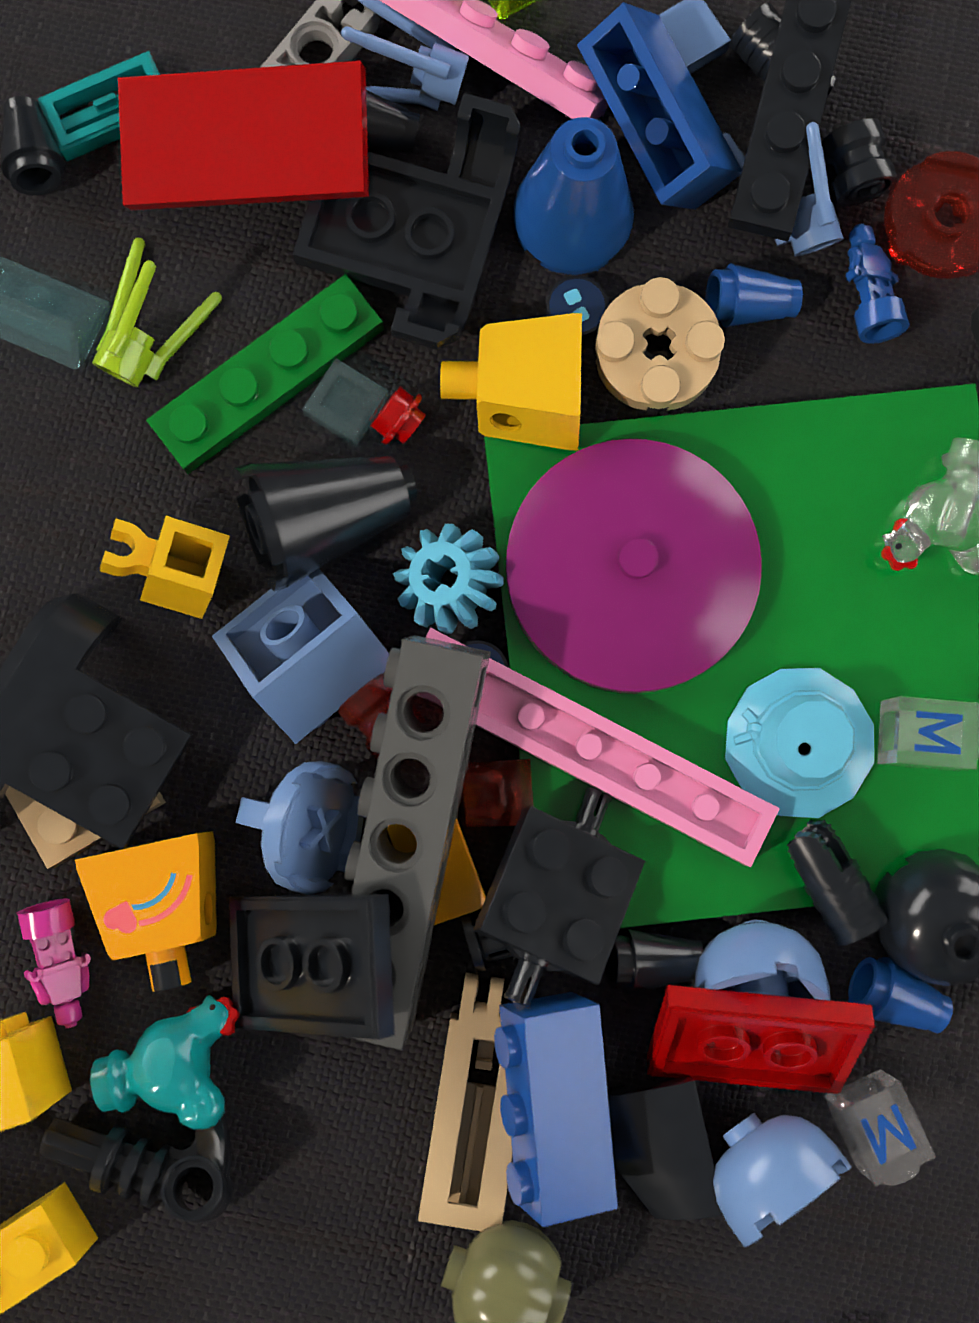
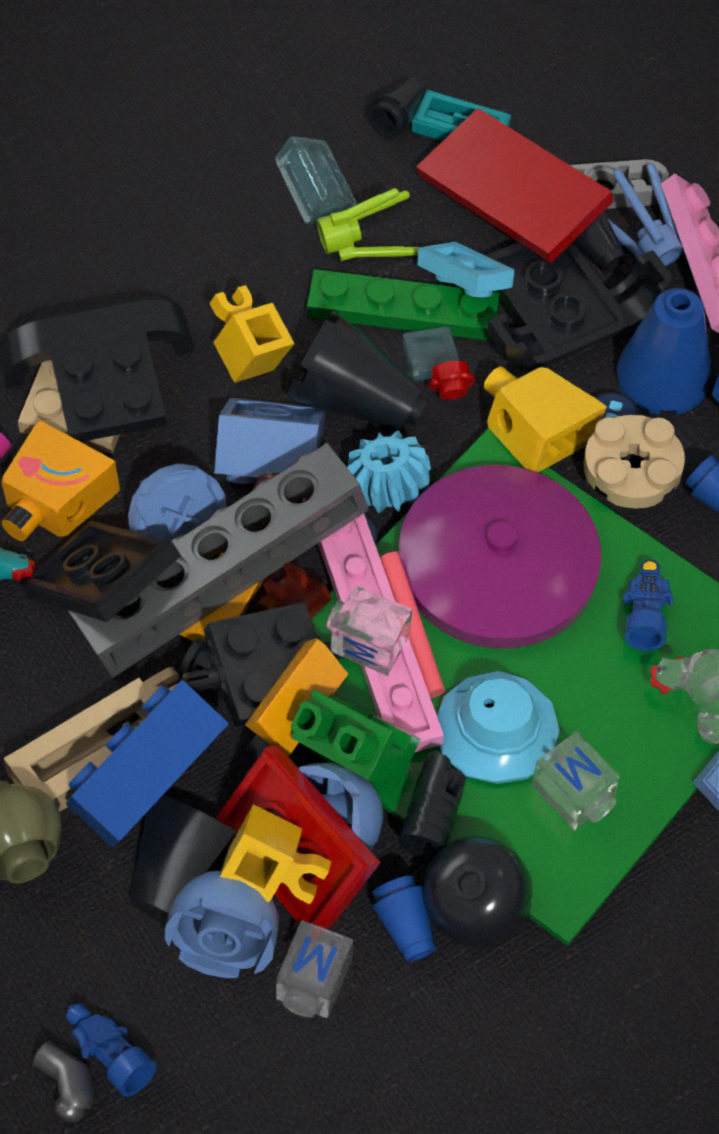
camera: 50 degrees right, 25 degrees down
(294, 281) = (465, 268): none -> medium azure plate
(627, 784) = (369, 629): none -> clear brick
(628, 916) = (309, 670): none -> light orange slope
(632, 718) = (403, 595): none -> coral bar
(743, 919) = (354, 738): none -> green hips
(770, 1102) = (267, 855): none -> yellow brick
(802, 476) = (647, 594): none -> blue piece

